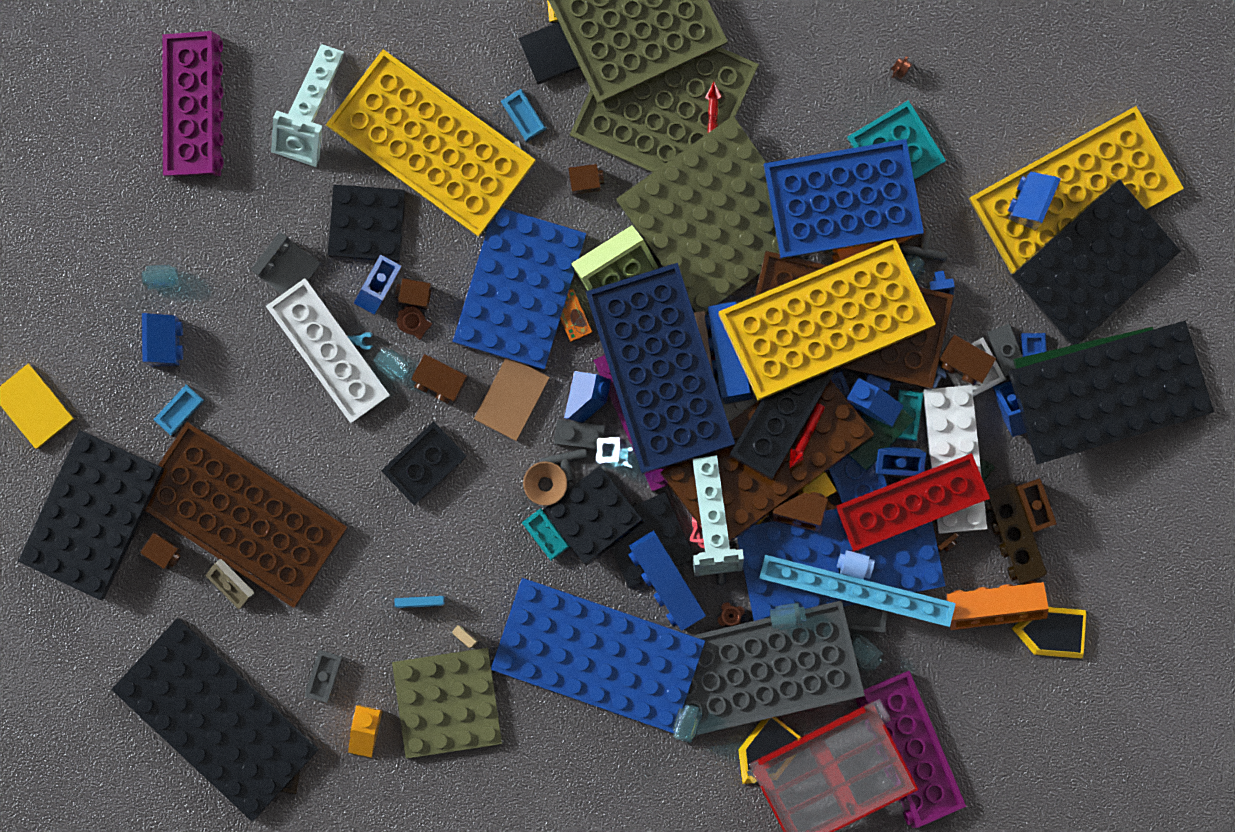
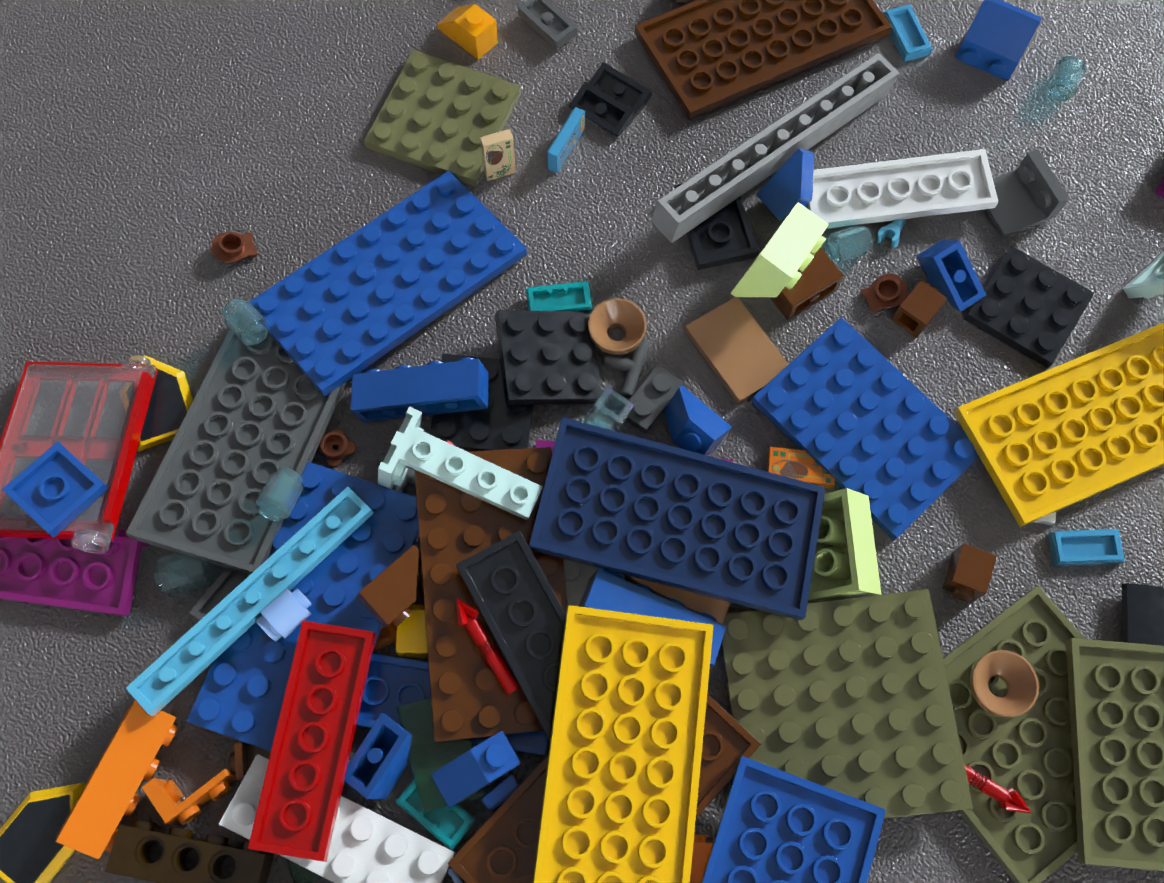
camera: 115 degrees right, 15 degrees down
(348, 447) = (772, 147): none -> light grey brick
(364, 591) = (611, 99): none -> black slope
(376, 423) = (790, 185): none -> blue slope
(438, 399) = (784, 255): none -> yellowish green slope
(634, 778) = (233, 247): none -> copper animal
(652, 117) = (1019, 678): none -> medium nougat piece
(865, 754) = (55, 489): none -> blue plate
(990, 571) = (166, 797): none -> orange bracket

